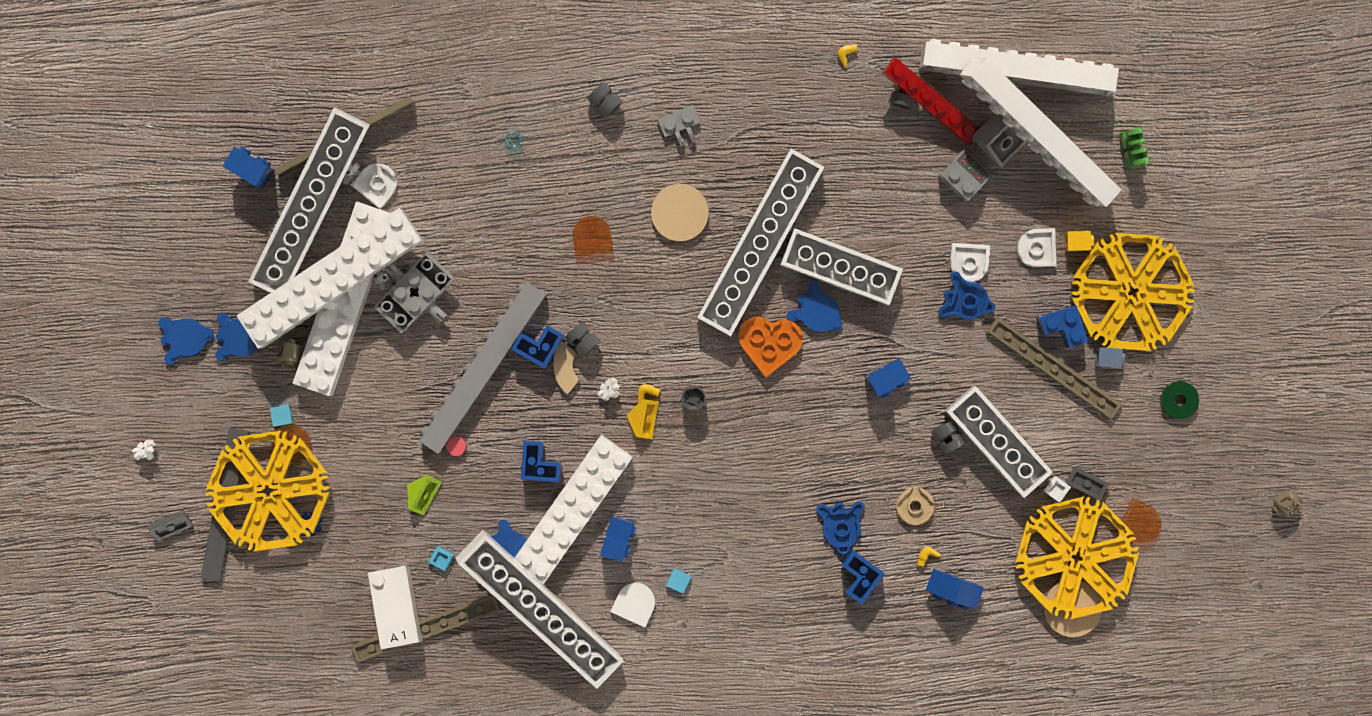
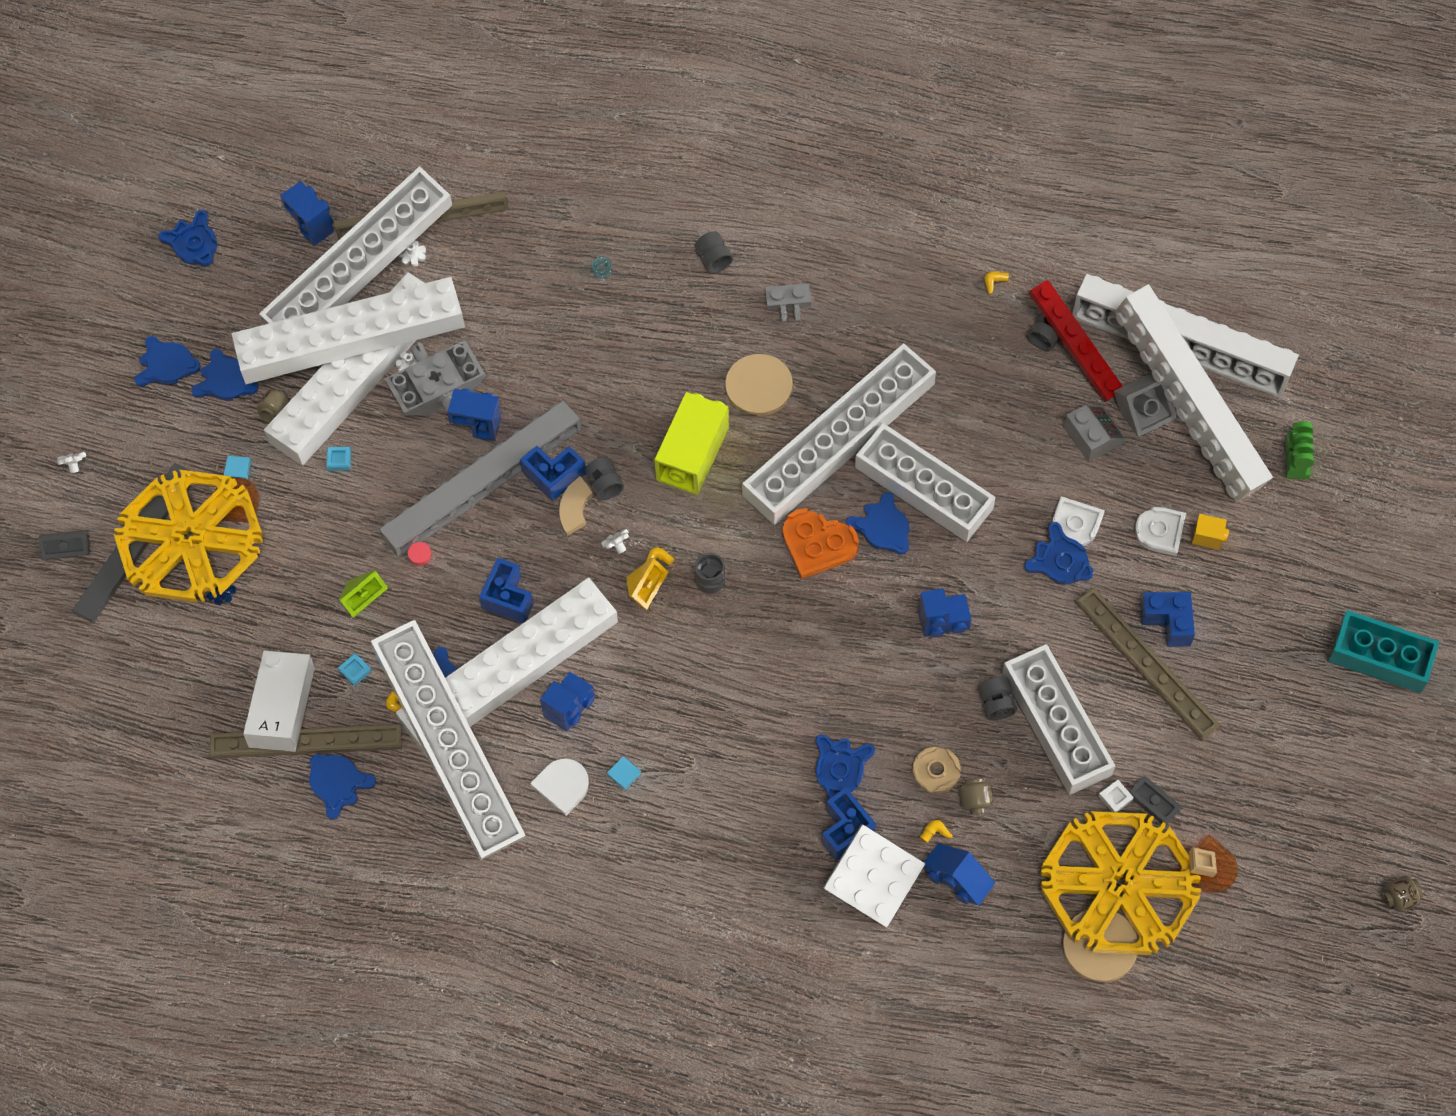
camera: 20 degrees right, 25 degrees down
(159, 216) = (192, 242): none -> blue tile
(360, 381) = (338, 459): none -> medium azure tile
(376, 183) = (436, 265): white tile -> none
(459, 316) = (476, 411): none -> blue brick
(461, 652) = (335, 782): none -> blue tile
(592, 236) = (652, 383): clear orange tile -> none
(644, 288) = (692, 443): none -> neon yellow brick
(893, 611) = (874, 875): none -> white plate
(951, 521) = (976, 796): none -> dark tan head
(1109, 357) = (1217, 666): sand blue brick -> none
(1134, 525) = (1202, 862): none -> tan tile
(1140, 307) = (1277, 610): yellow plate -> none
(1190, 404) = (1299, 728): dark green tile -> none
(1236, 308) = (1384, 651): none -> teal brick

